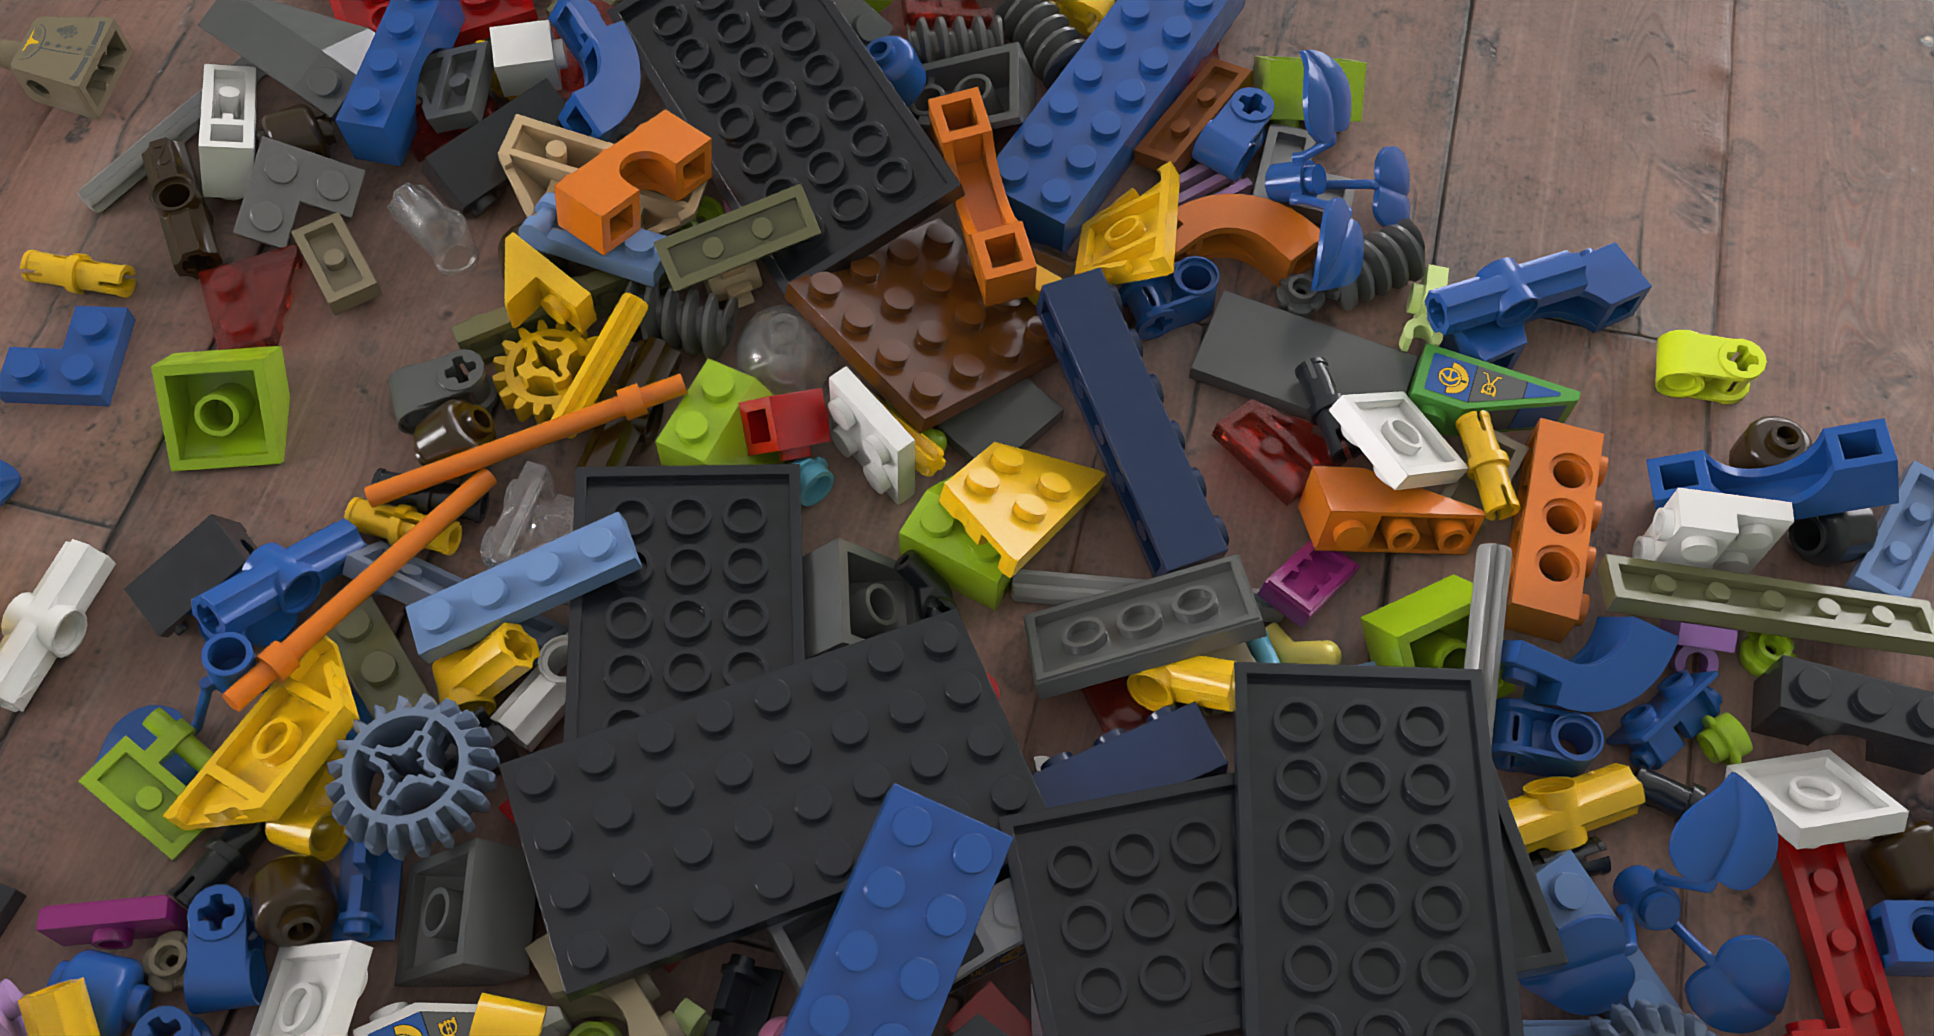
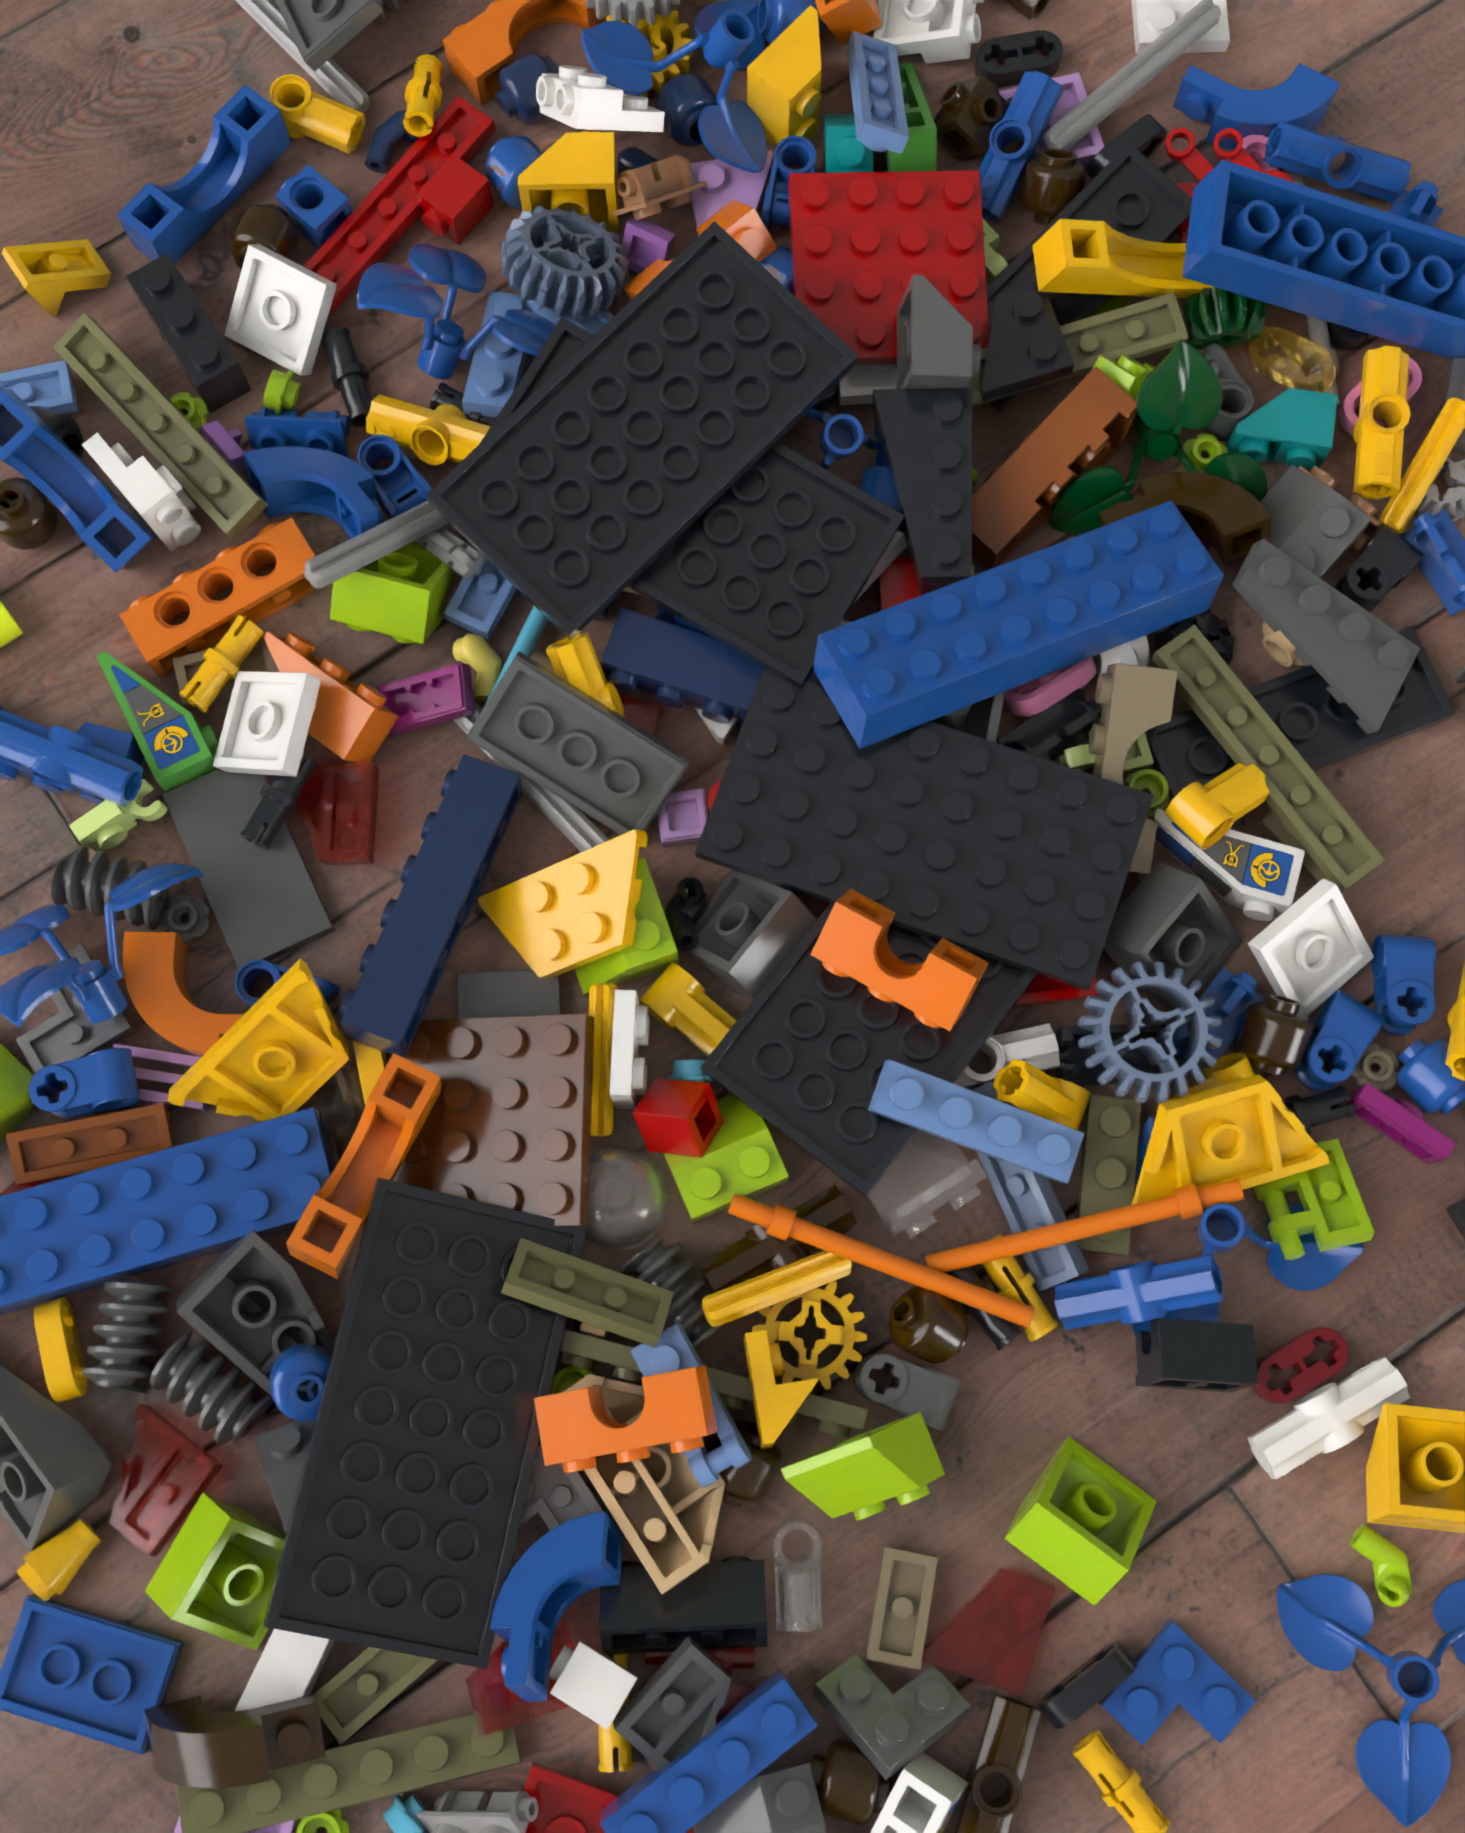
camera: 135 degrees left, 15 degrees up
(99, 652) = (1307, 1375): none -> dark red beam
(146, 311) = (1087, 1685): none -> black beam
(417, 307) = (869, 1469): none -> lime slope
(652, 642) = (858, 947): none -> orange arch
(866, 519) = (681, 1004): none -> yellow piece
(1012, 671) = (683, 817): none -> lavender tile

